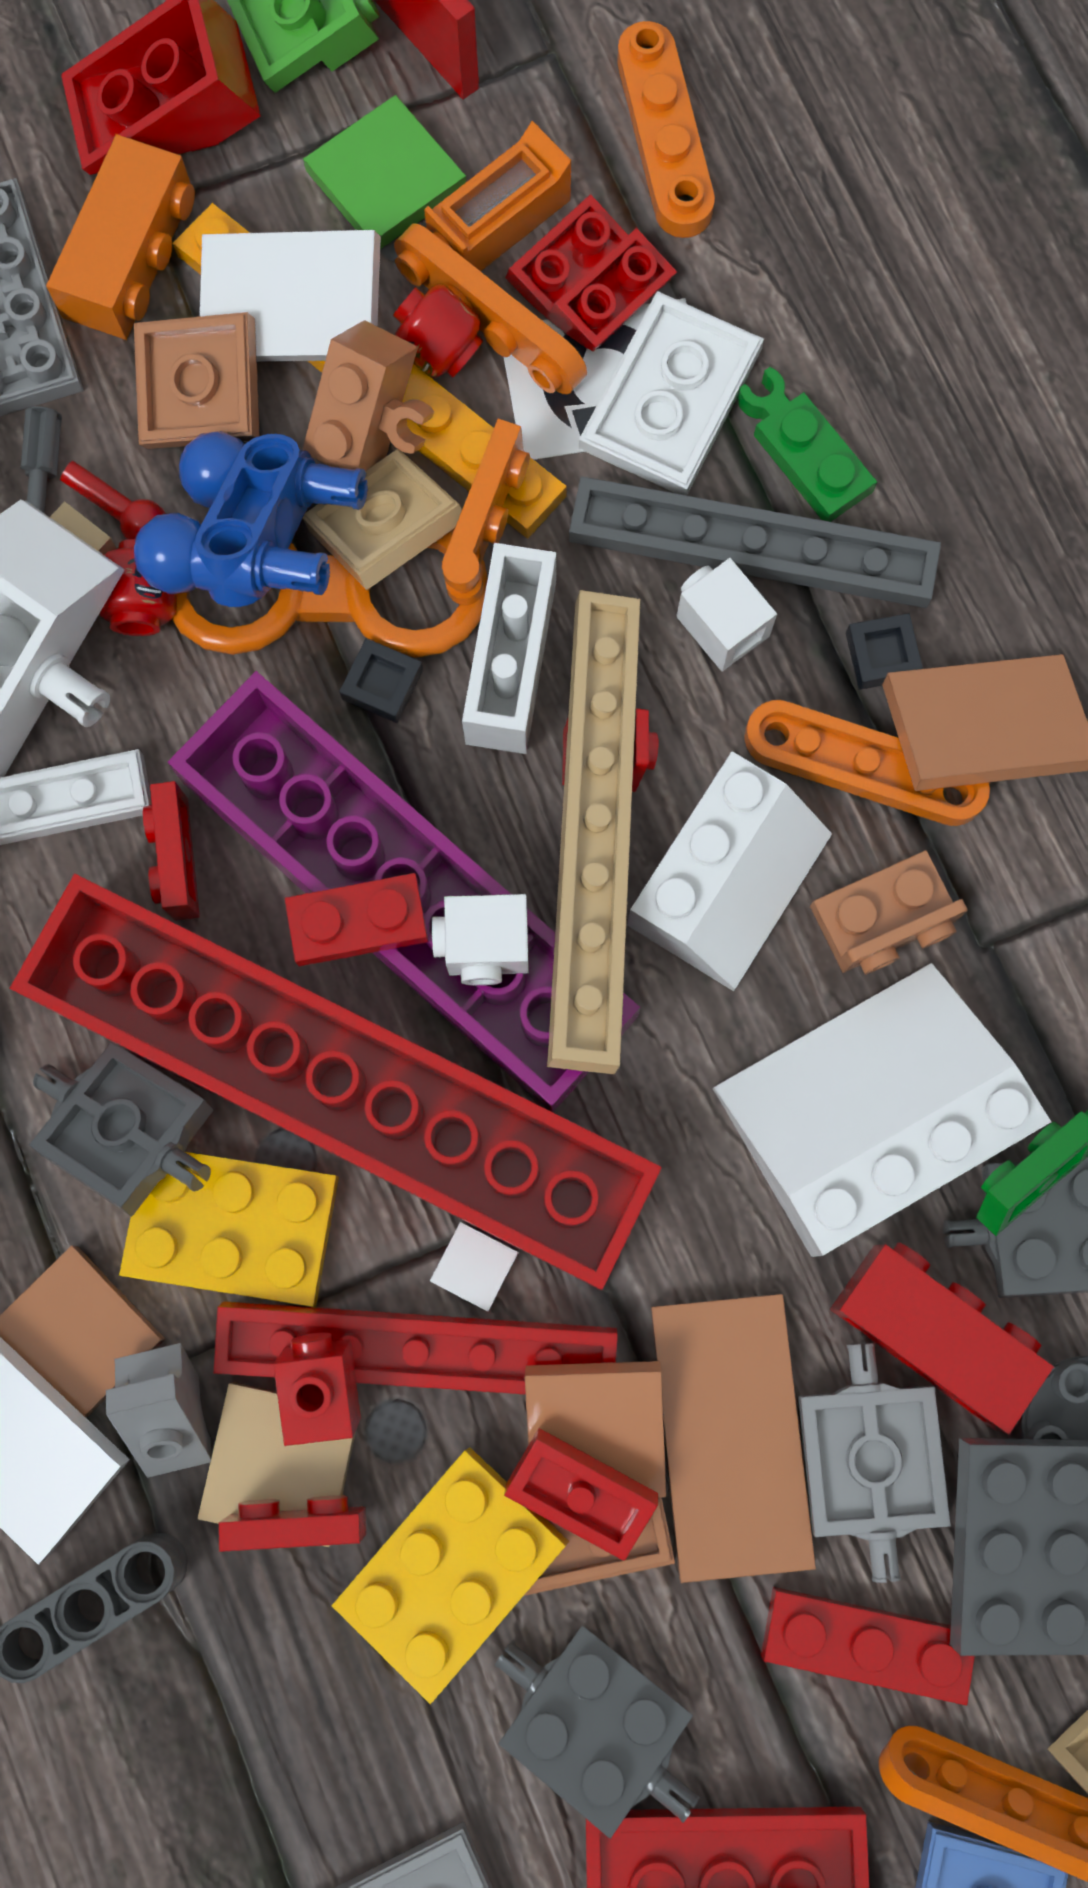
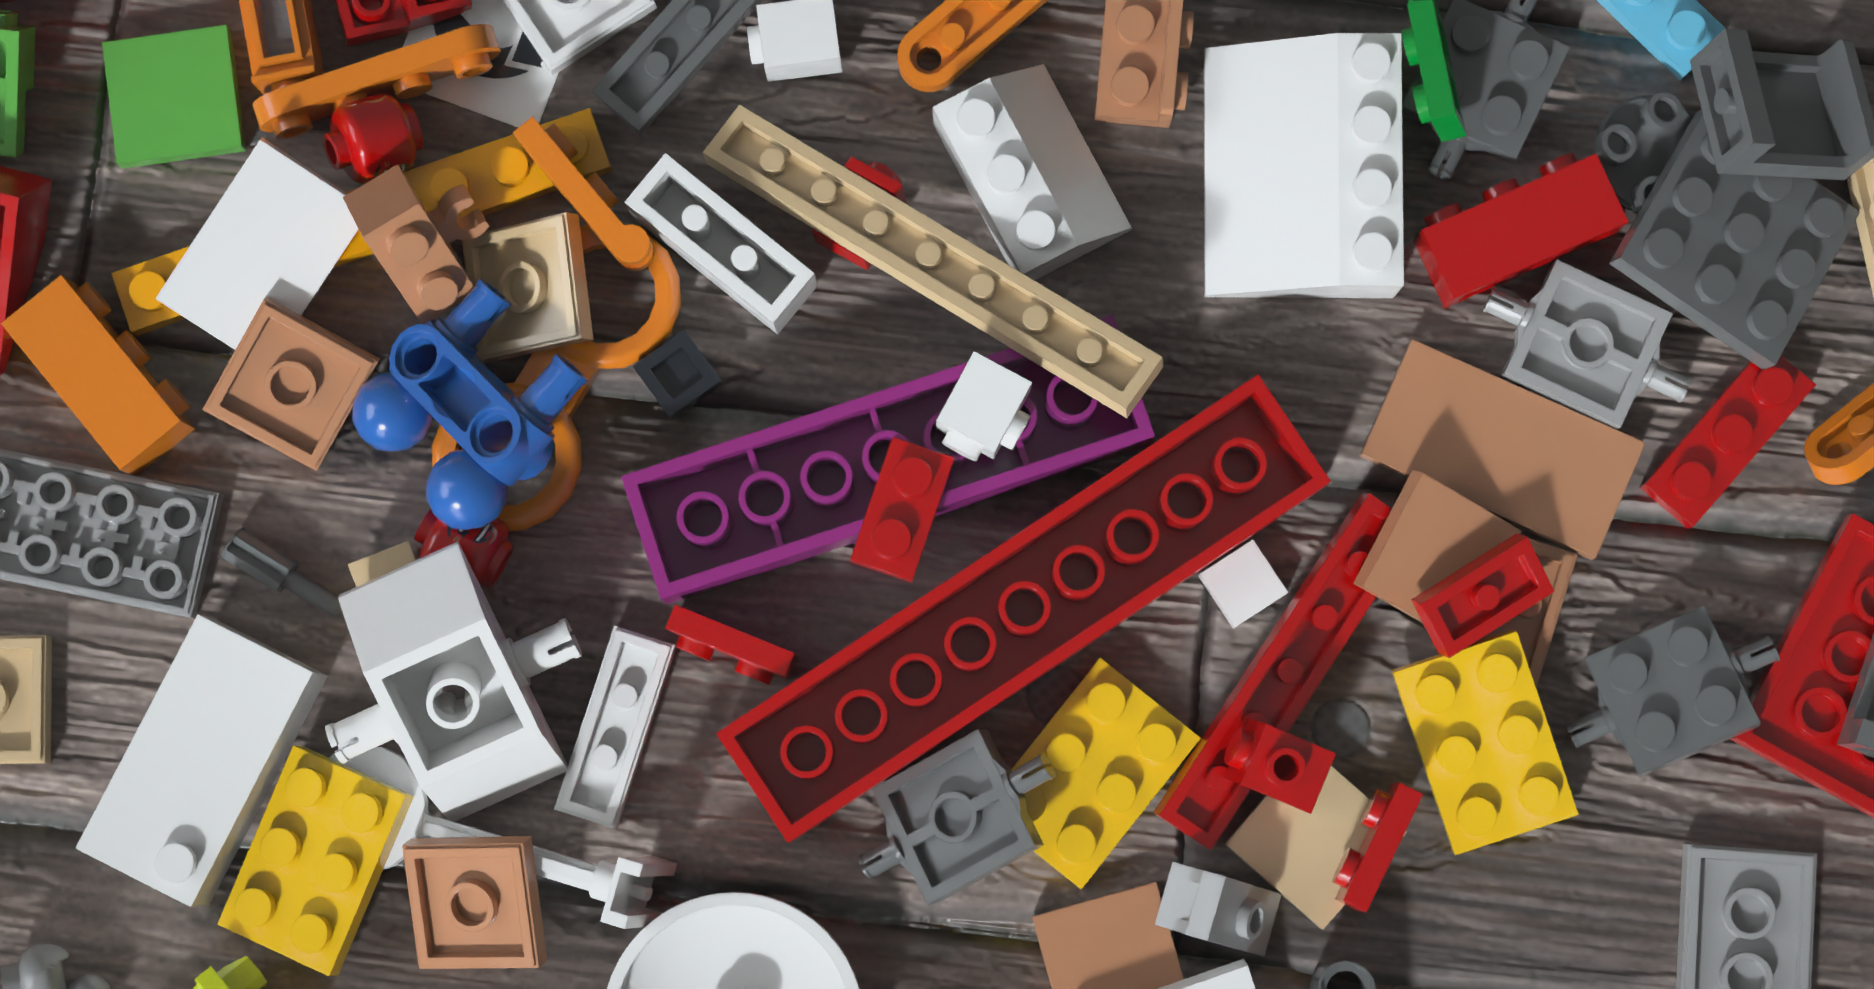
camera: 60 degrees left, 5 degrees up
(130, 513) = (389, 509): red bar -> none

